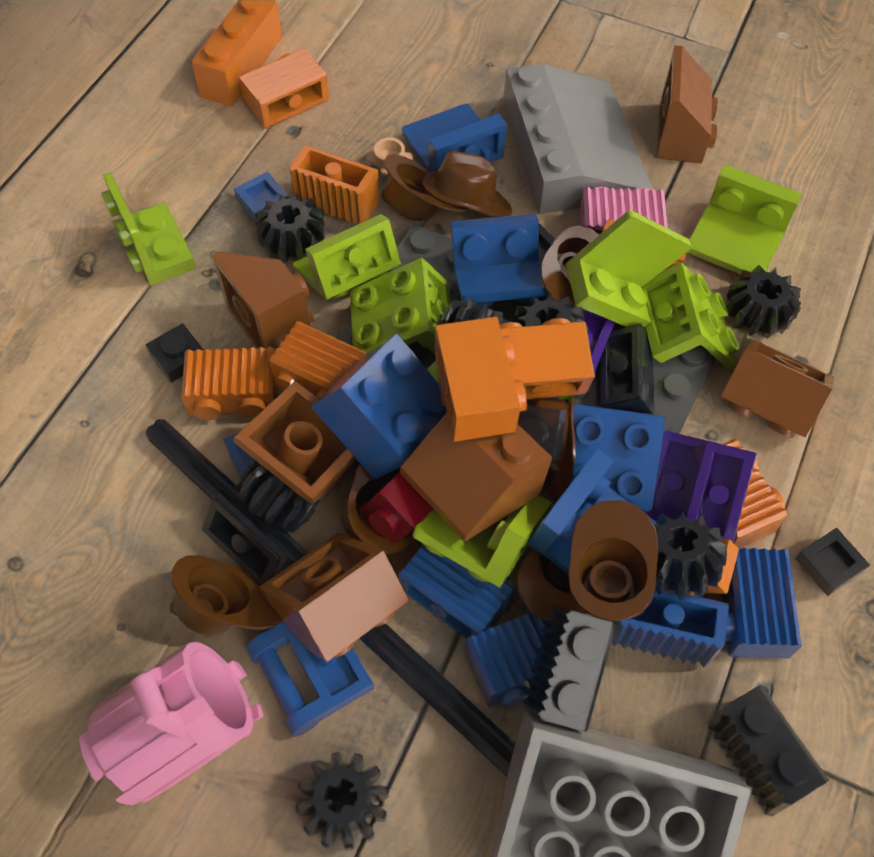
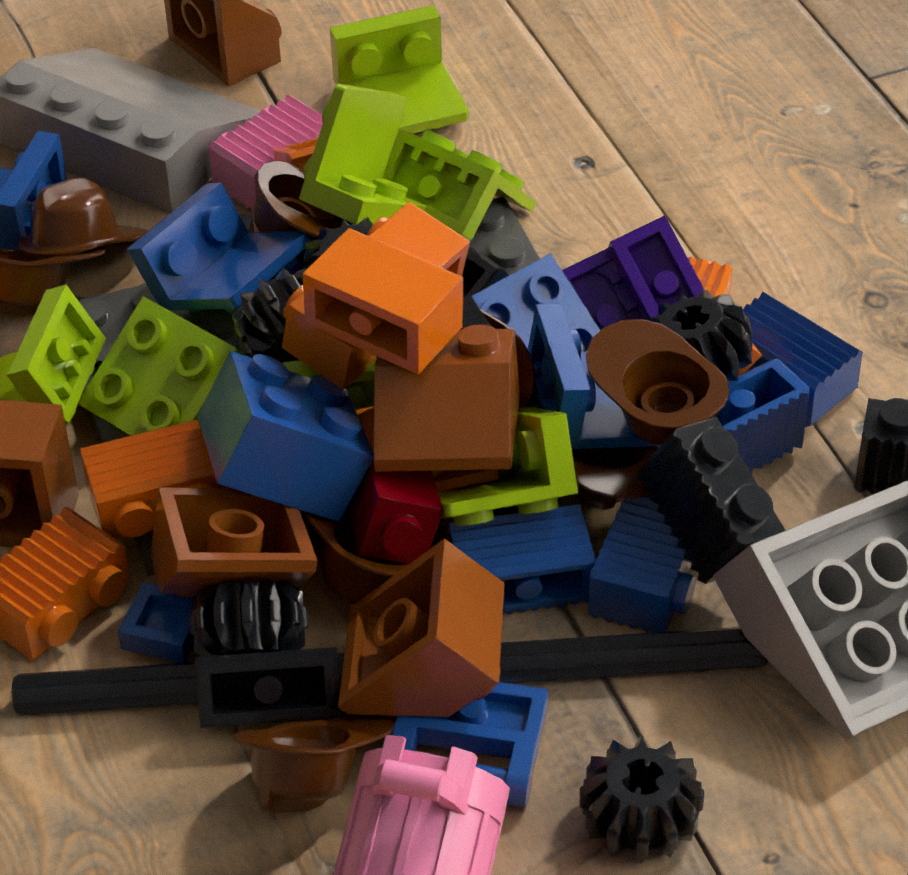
camera: 45 degrees left, 15 degrees down
(763, 301) = (498, 126): black gear -> none
(777, 389) = (598, 185): dark orange slope -> none
(832, 561) = (805, 283): black plate -> none

